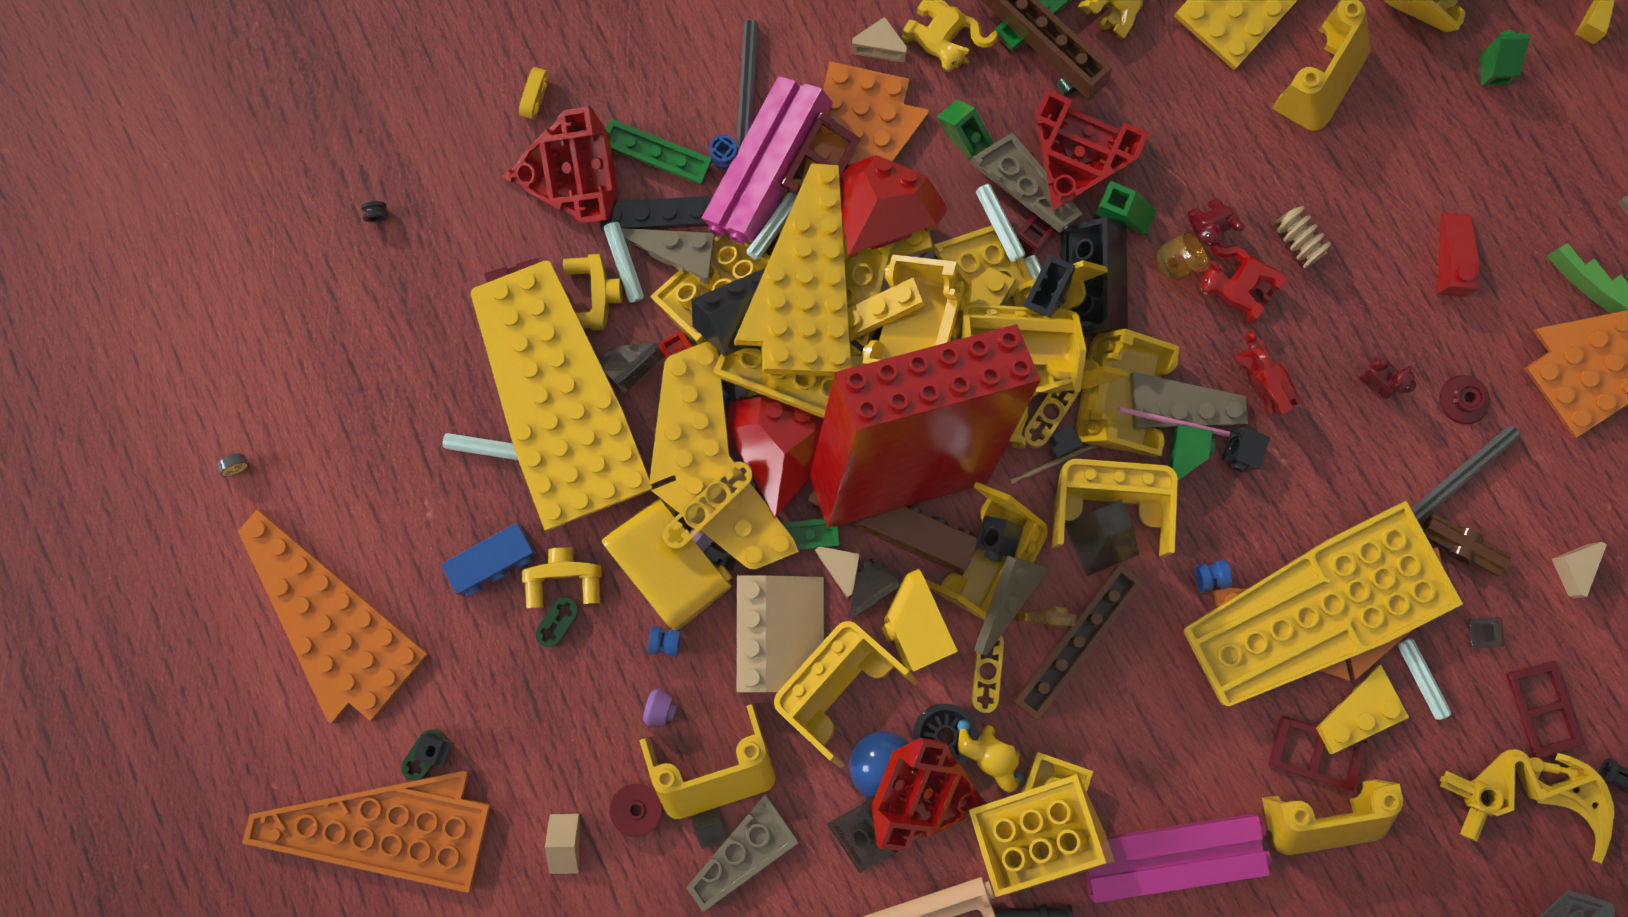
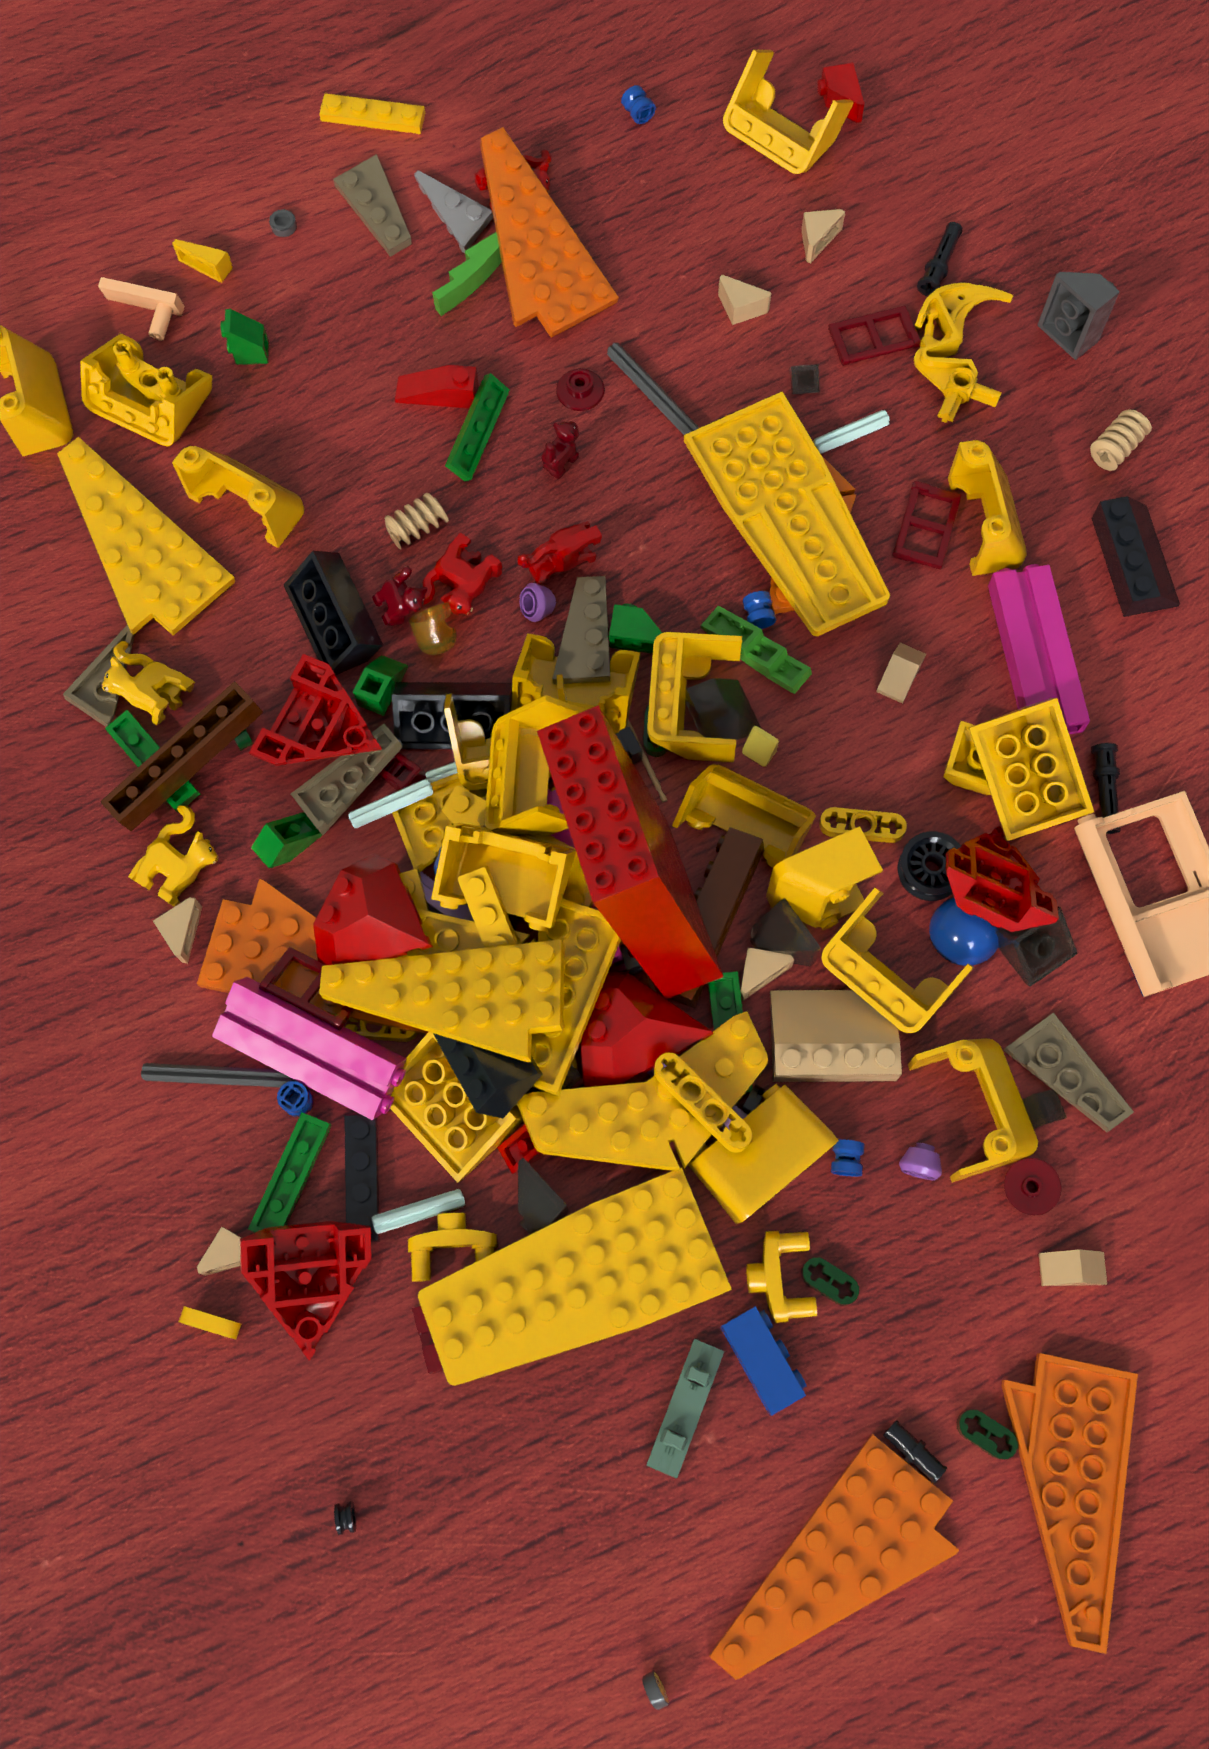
camera: 90 degrees left, 10 degrees down
(410, 690) = (915, 1451): none -> black pin
(442, 752) = (976, 1425): black piece -> none
(455, 493) = (685, 1408): none -> sand green hinge
(479, 446) = (630, 1375): light aqua axle -> none
(591, 96) = (221, 1254): none -> tan slope
(678, 248) = (406, 1142): dark tan wing -> none
(771, 228) = (386, 1038): light aqua axle -> none
(991, 756) = (950, 817): yellow piece -> none
(998, 538) = (720, 815): black brick -> none
(1012, 591) = (777, 793): dark tan wing -> none
(1050, 287) = (469, 743): black slope -> none
(1053, 616) = (807, 759): clear yellow wing -> none
(1066, 573) = (760, 746): none -> light yellow slope
(1077, 642) = (832, 735): reddish brown brick -> none
(1151, 717) = (901, 672): none -> tan slope
(1170, 420) = (605, 638): bright pink piece -> none
(1171, 572) = (758, 651): none -> bright green slope
(1200, 161) = (332, 612): none -> black slope
(1216, 356) = (536, 602): none -> medium lavender cone
(1245, 449) = (632, 577): black brick -> none
(1363, 713) = (887, 482): yellow wing -> none
(1412, 294) = (477, 427): none -> green plate
(1466, 545) = (723, 390): reddish brown piece -> none

